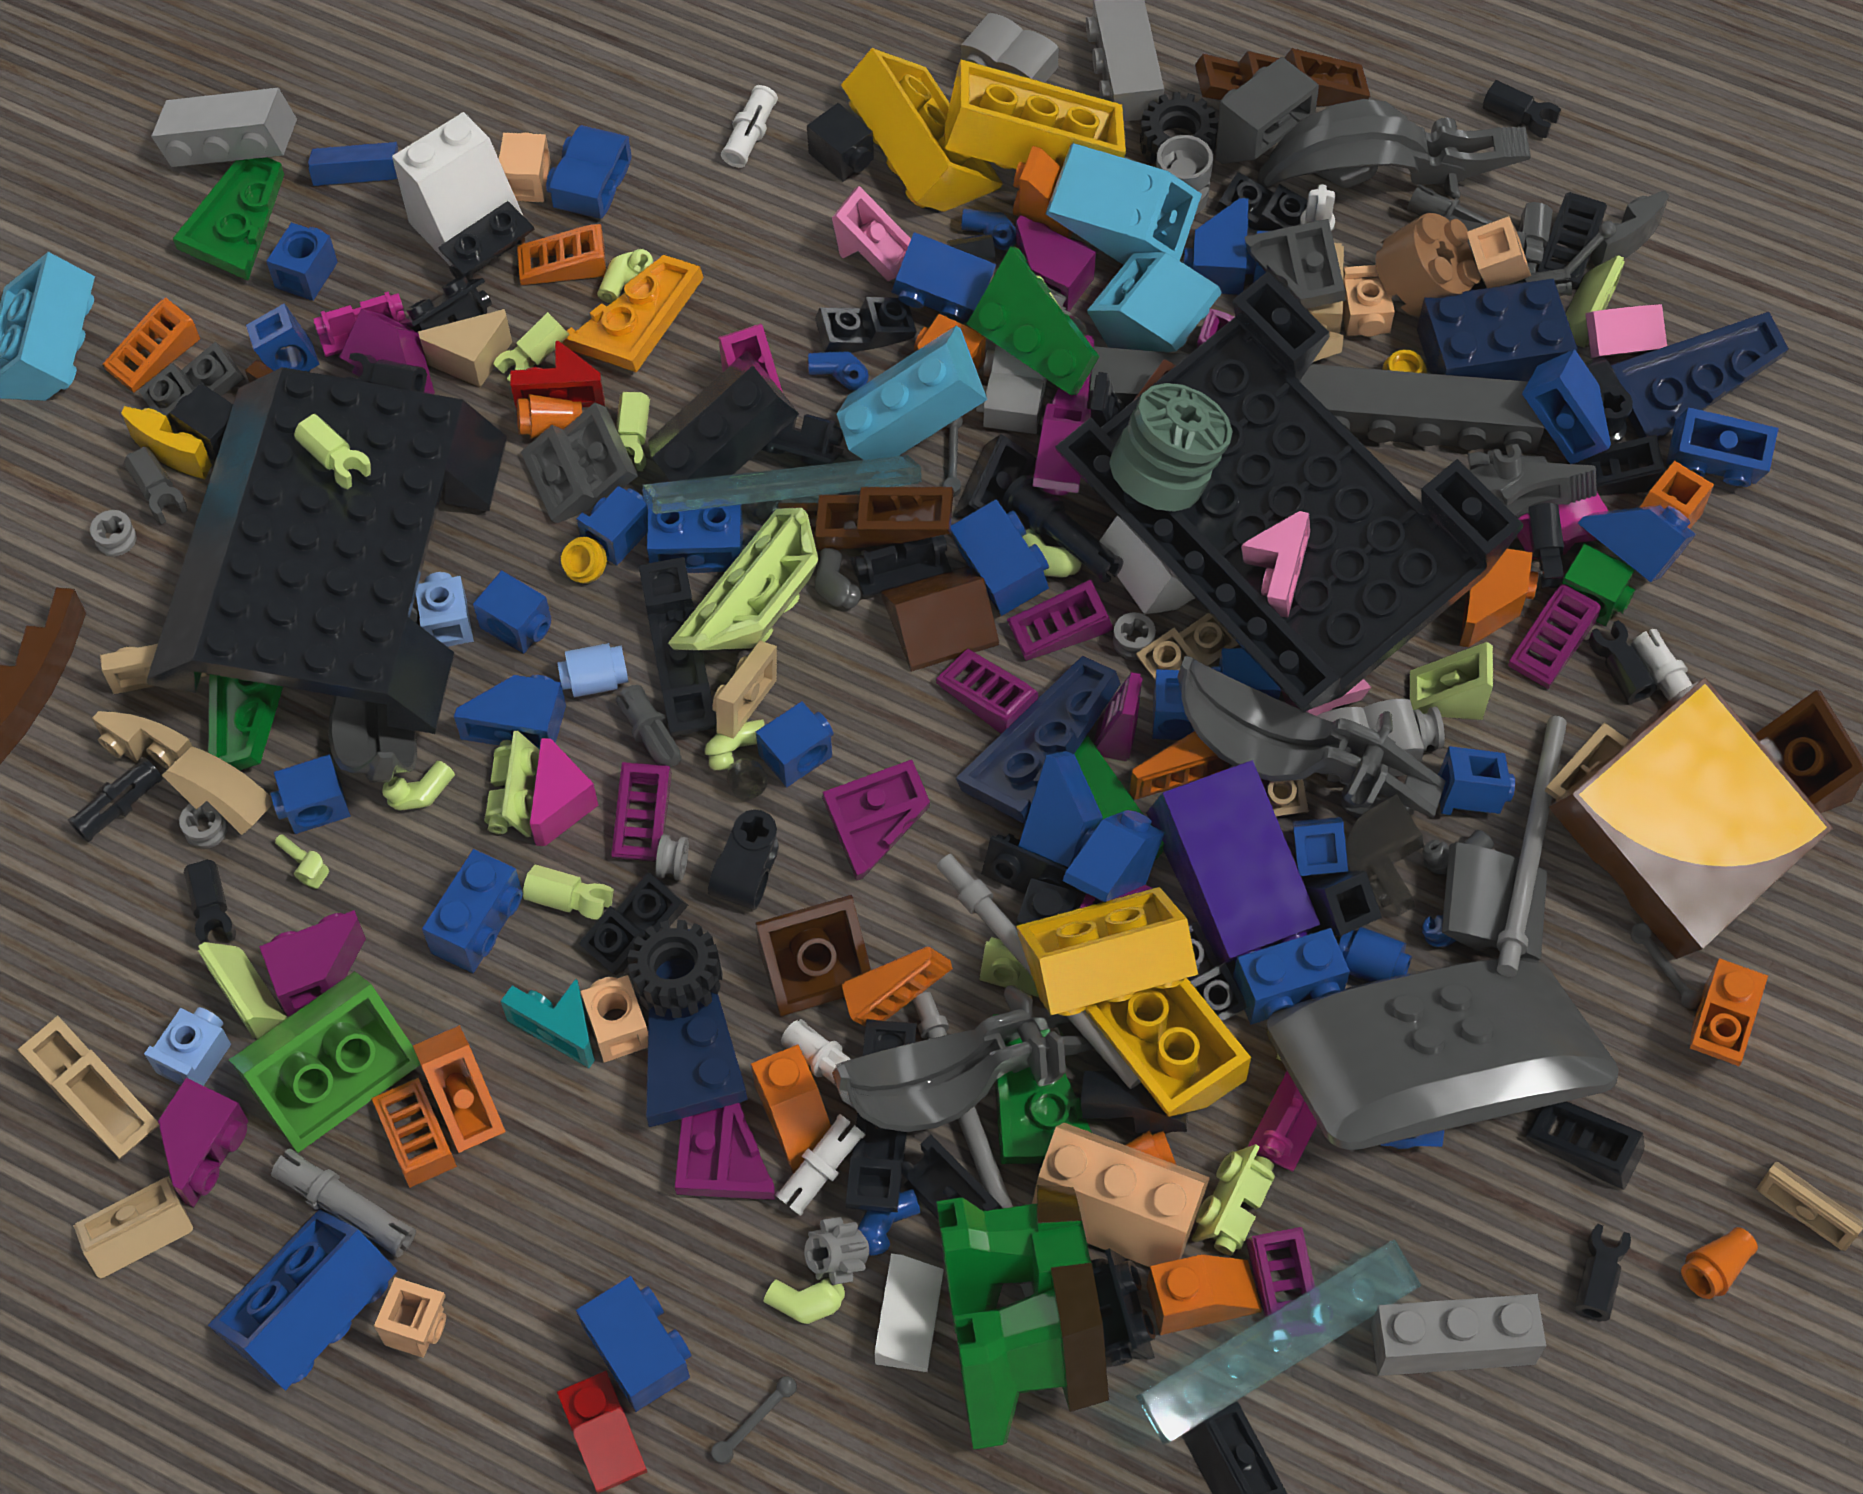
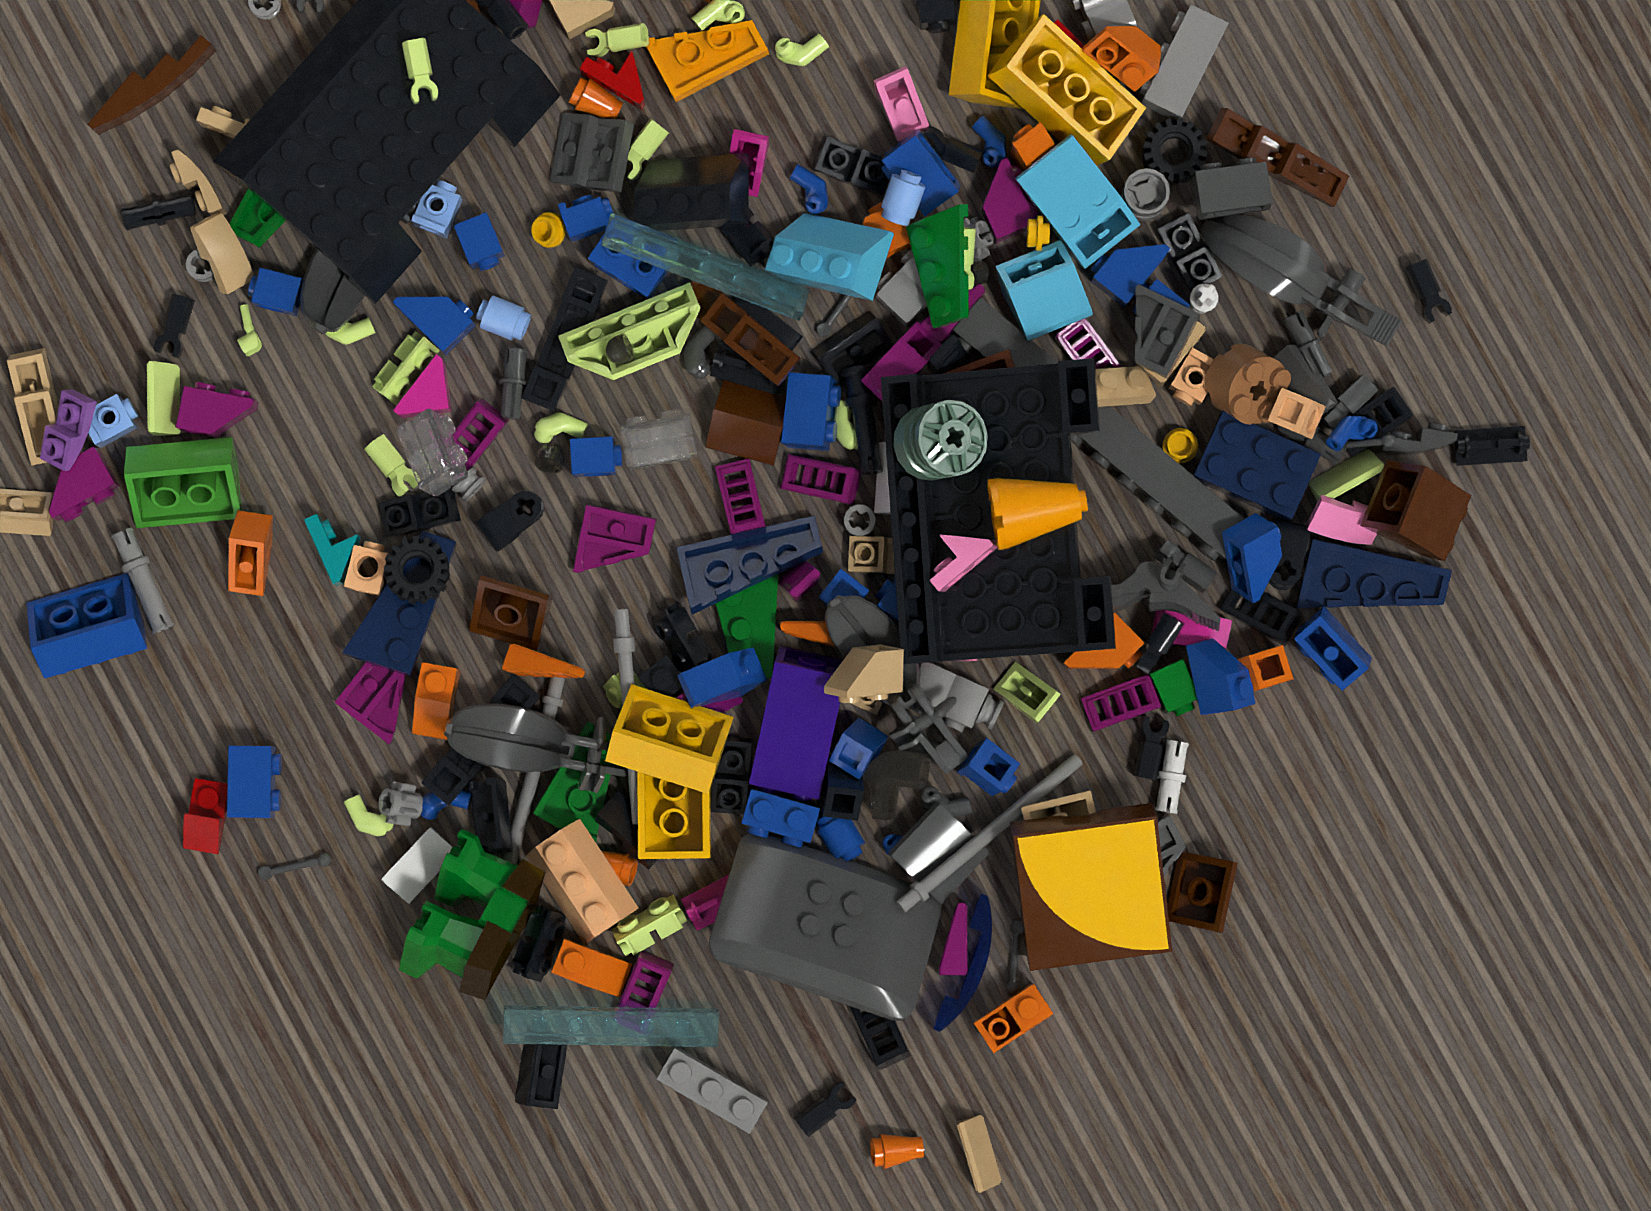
camera: 35 degrees right, 25 degrees up
(145, 1071) = (66, 438): none -> medium lavender slope
(411, 1317) = (137, 684): light nougat brick -> none
(424, 1165) = (217, 589): orange slope -> none
(473, 911) = (327, 443): blue brick -> none
(607, 838) = (433, 451): none -> clear brick
(734, 263) = (800, 54): none -> yellowish green arm
(746, 689) = (574, 406): tan plate -> none
(749, 593) = (619, 350): none -> clear smoke hinge
(816, 1050) = (473, 674): white axle -> none
(820, 1164) = (424, 745): white pin -> none
(856, 684) = (658, 440): none -> clear brick
(944, 293) = (902, 197): none -> light blue brick
(1061, 811) = (717, 623): blue slope -> none
(1065, 65) = (1125, 54): none -> orange slope
(1106, 252) = (1037, 233): none -> yellow plate
(1276, 737) = (867, 672): none -> tan slope
(1315, 457) = (1032, 508): none -> light orange cone
(1563, 246) = (1351, 428): none -> blue arm
(1598, 990) = (955, 949): none -> magenta slope
(1602, 946) = (952, 1007): none -> clear blue slope
(1686, 268) = (1416, 509): none -> reddish brown slope
(1704, 195) = (1491, 445): none -> black hinge

